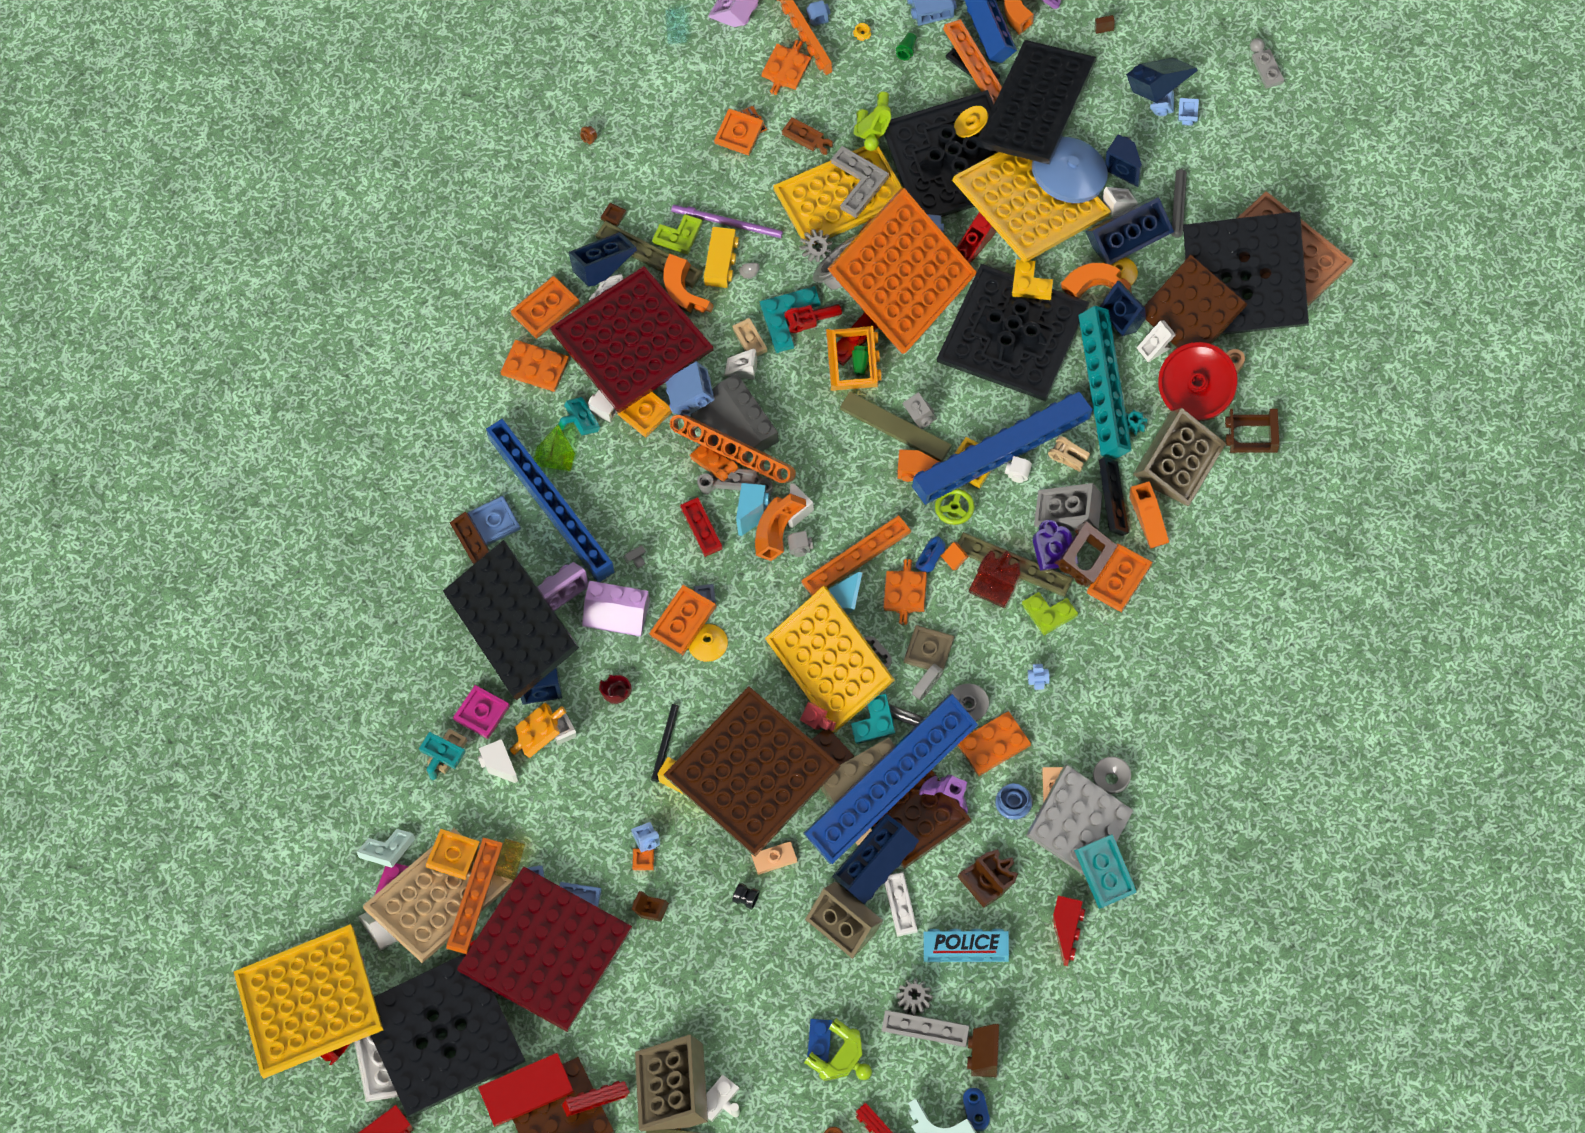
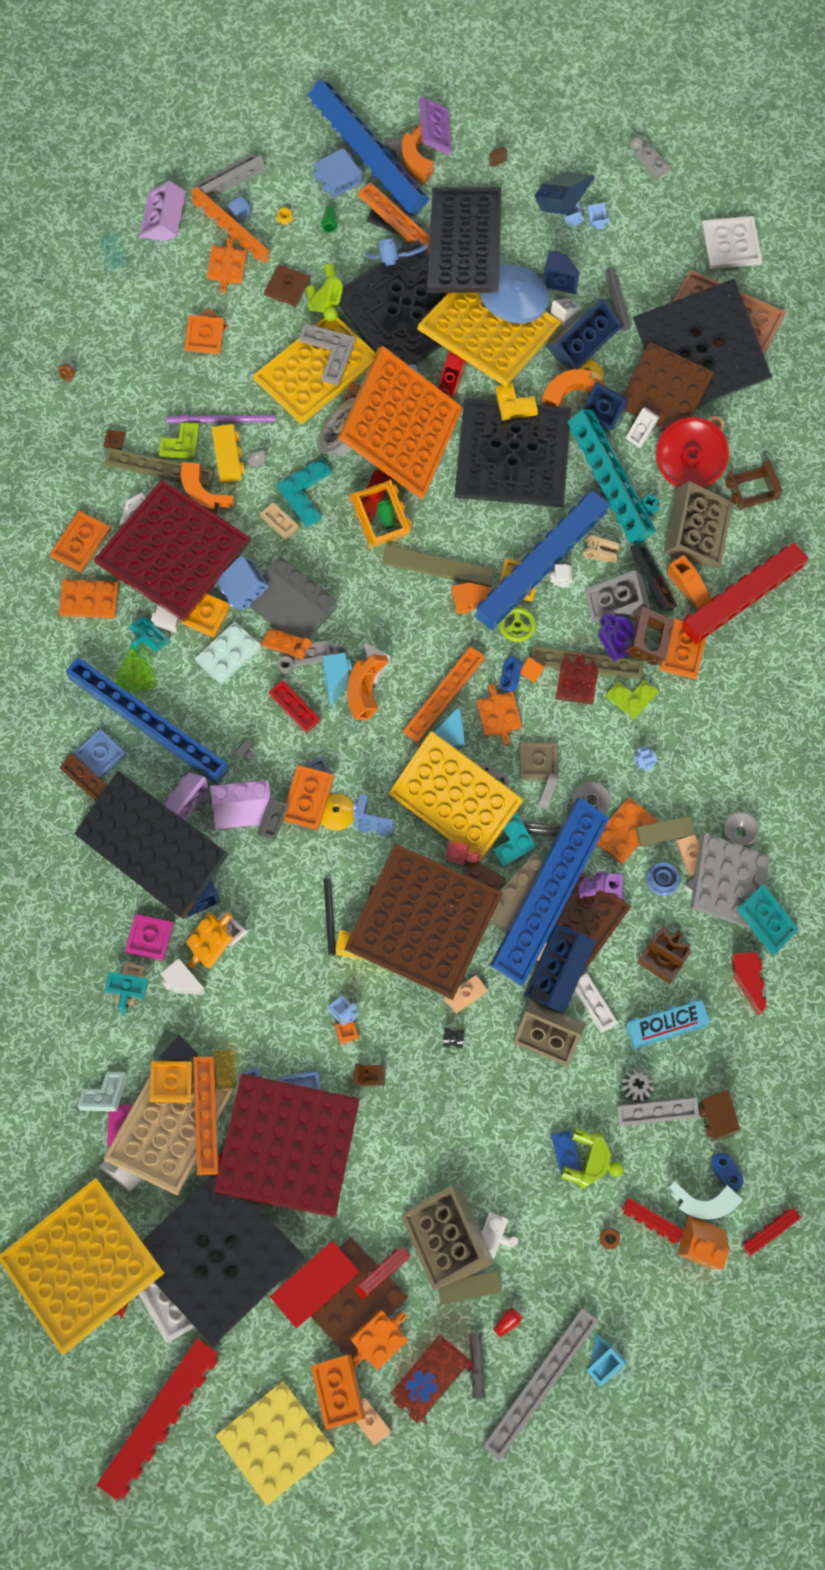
camera: 25 degrees left, 5 degrees up
(467, 822) = (173, 1047): none -> black slope
(601, 258) = (118, 483): dark blue slope -> none
(615, 689) = (268, 880): dark red hair -> none
(640, 630) = (272, 818): none -> dark grey plate
(654, 456) = (228, 653): none -> light aqua plate
(724, 443) = (291, 628): orange beam -> none
(732, 660) = (368, 822): none -> medium blue bracket
(742, 364) = (280, 546): white slope -> none
(799, 544) = (390, 697): light grey plate -> none
(806, 136) = (267, 323): dark orange plate -> none
(807, 318) = (324, 488): red connector -> none
(819, 238) = (316, 424): light grey gear -> none
(840, 103) = (287, 285): none -> reddish brown plate
(920, 410) = (457, 546): light grey head -> none
(951, 95) = (389, 253): none -> medium blue plant
(971, 121) = (414, 271): yellow dish -> none
(1032, 754) = (664, 831): none -> olive tile
(1201, 538) = (744, 593): none -> red brick
(1321, 174) = (731, 242): none -> white plate

